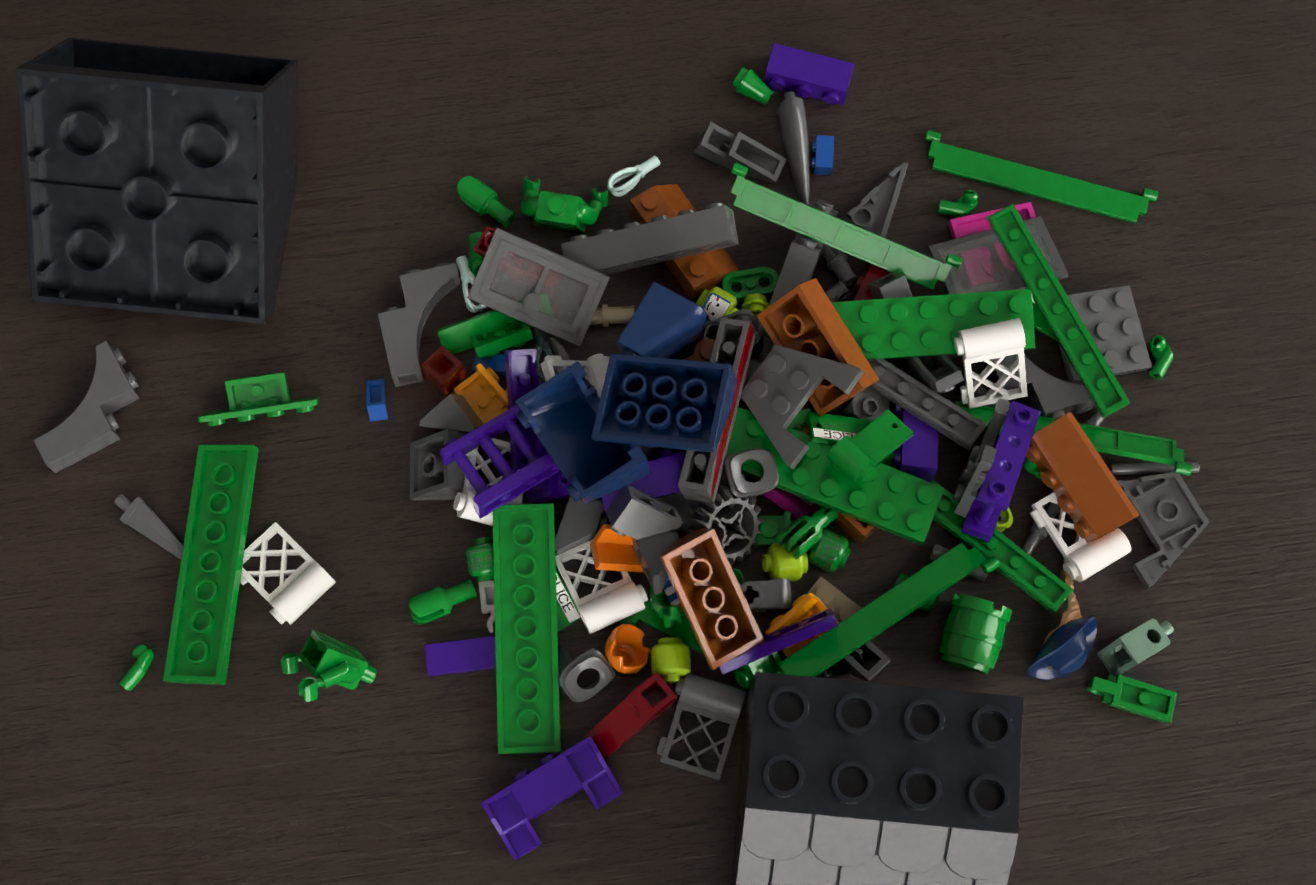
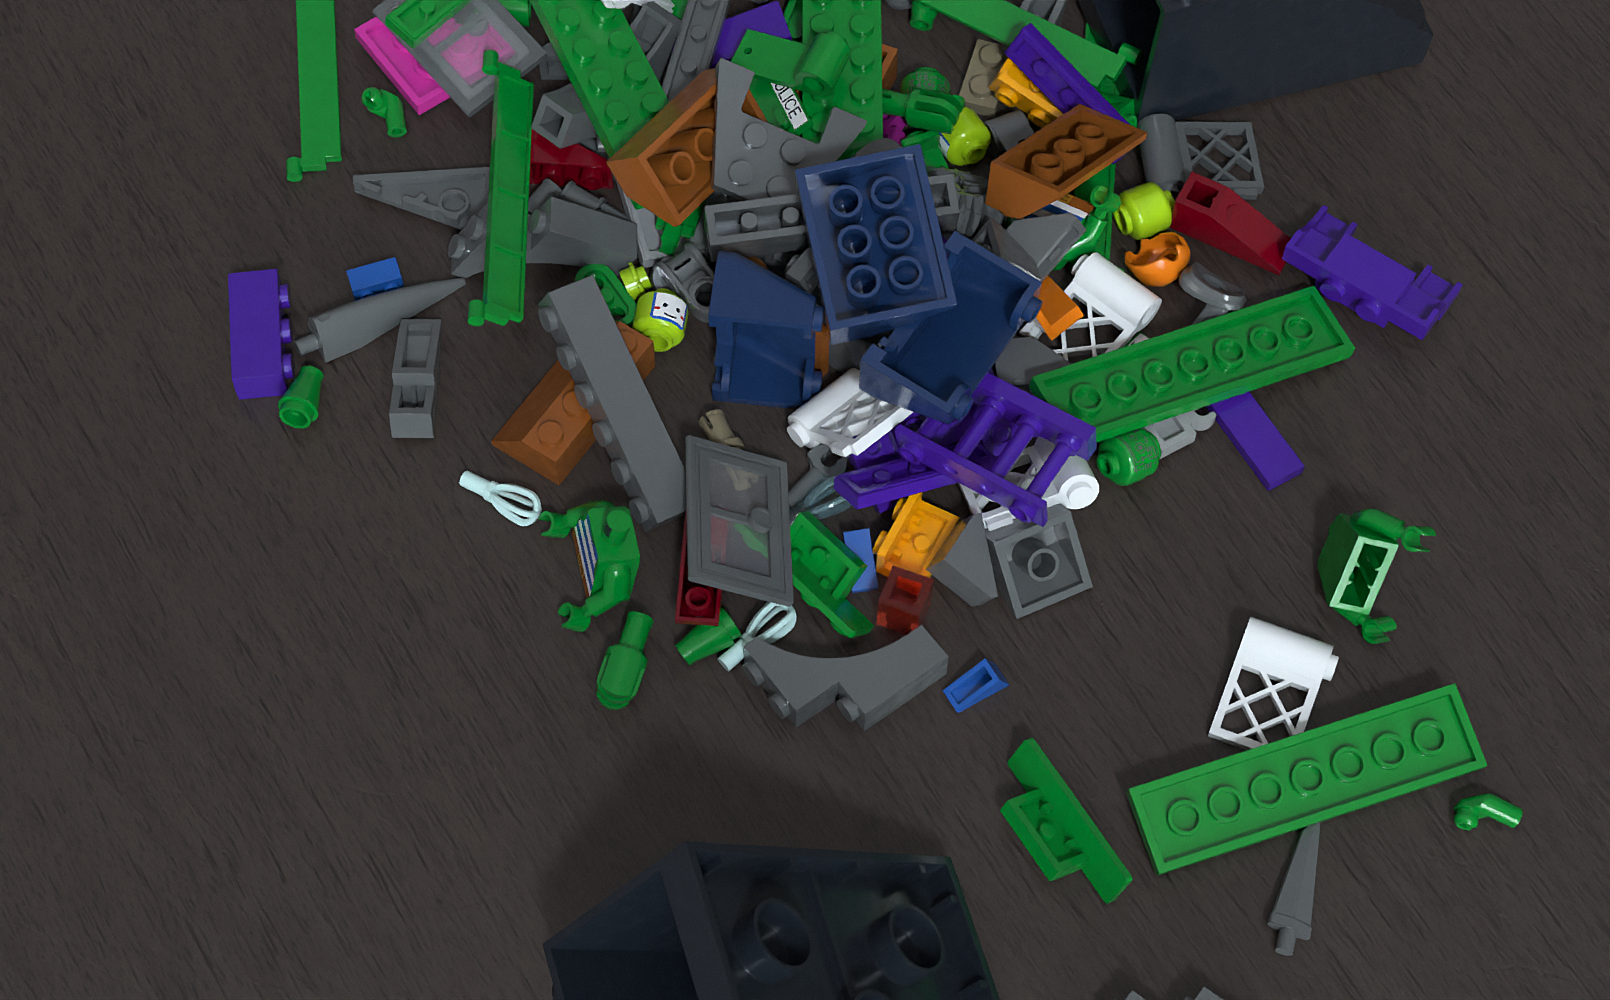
camera: 110 degrees left, 10 degrees down
(439, 601) = (1209, 488): green arm -> none

